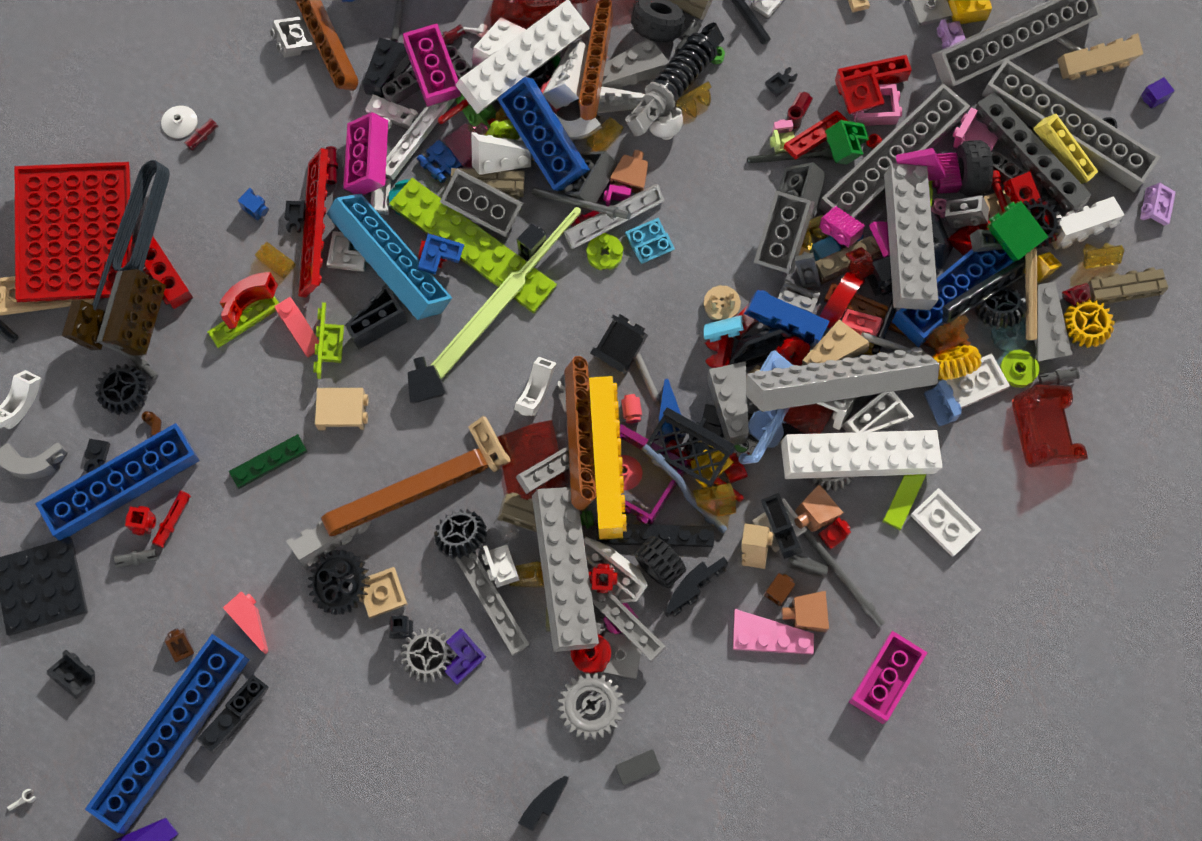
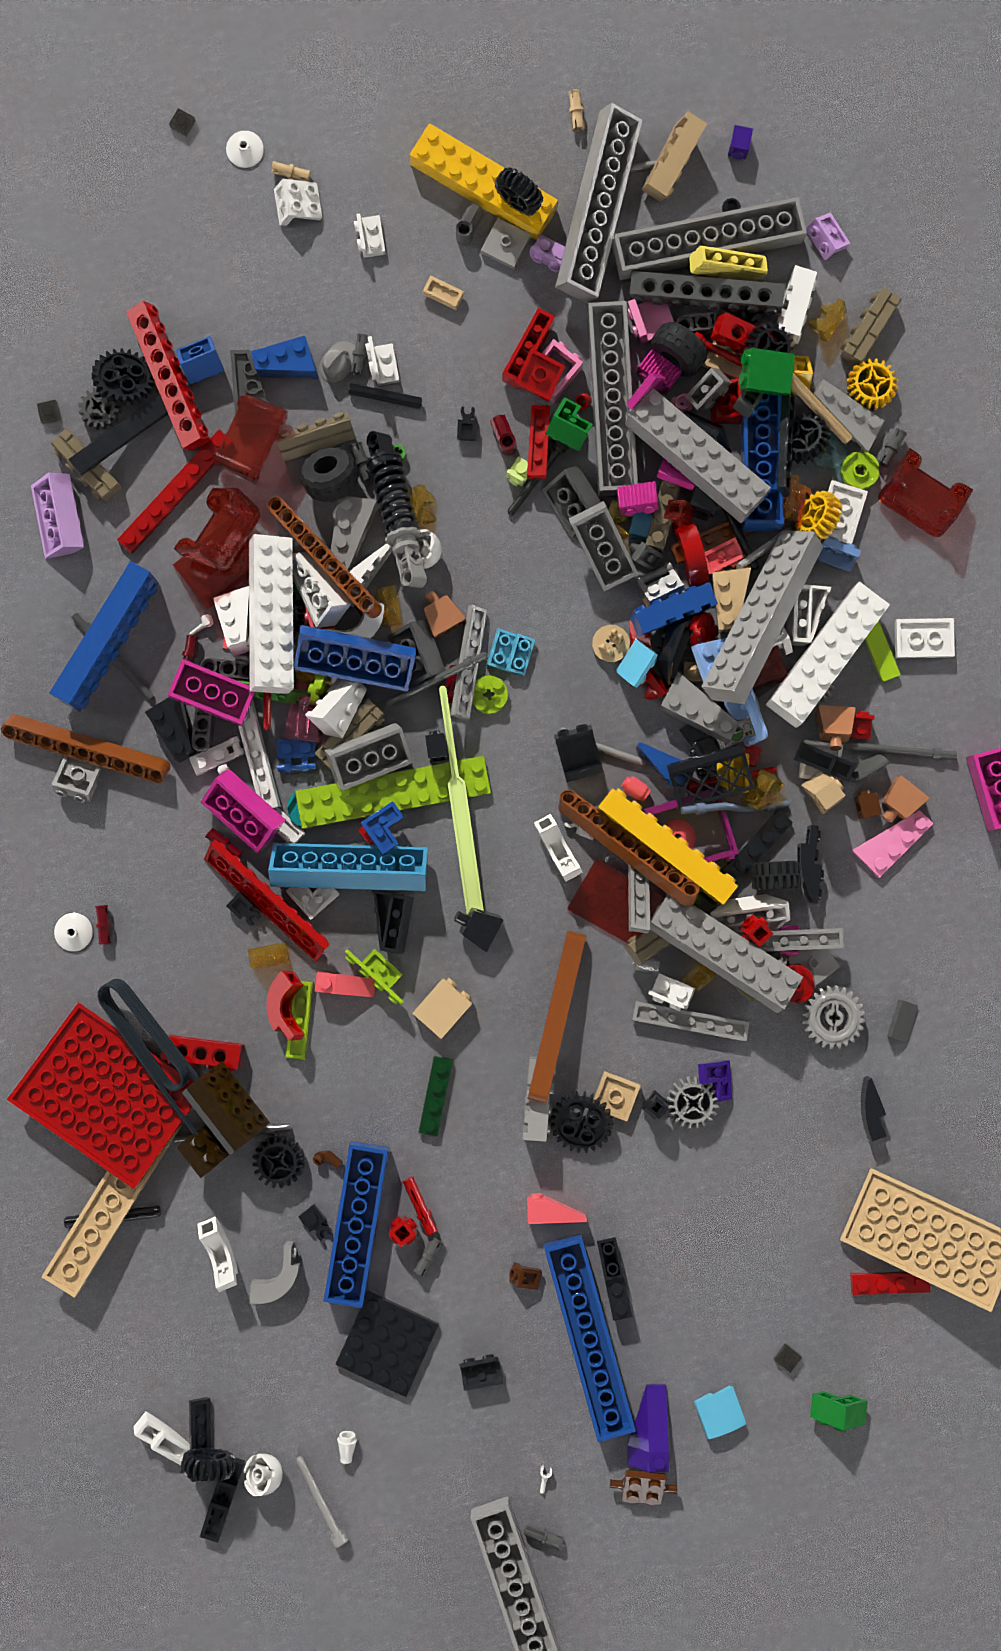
camera: 45 degrees left, 15 degrees up
(253, 204) = (206, 933): blue brick -> none
(460, 534) = (624, 994): black gear -> none
(488, 443) = (569, 920): tan plate -> none
(616, 193) = (451, 639): dark pink bracket -> none
(783, 126) = (507, 461): bright pink plate -> none
(1077, 294) = (844, 371): dark red bracket -> none

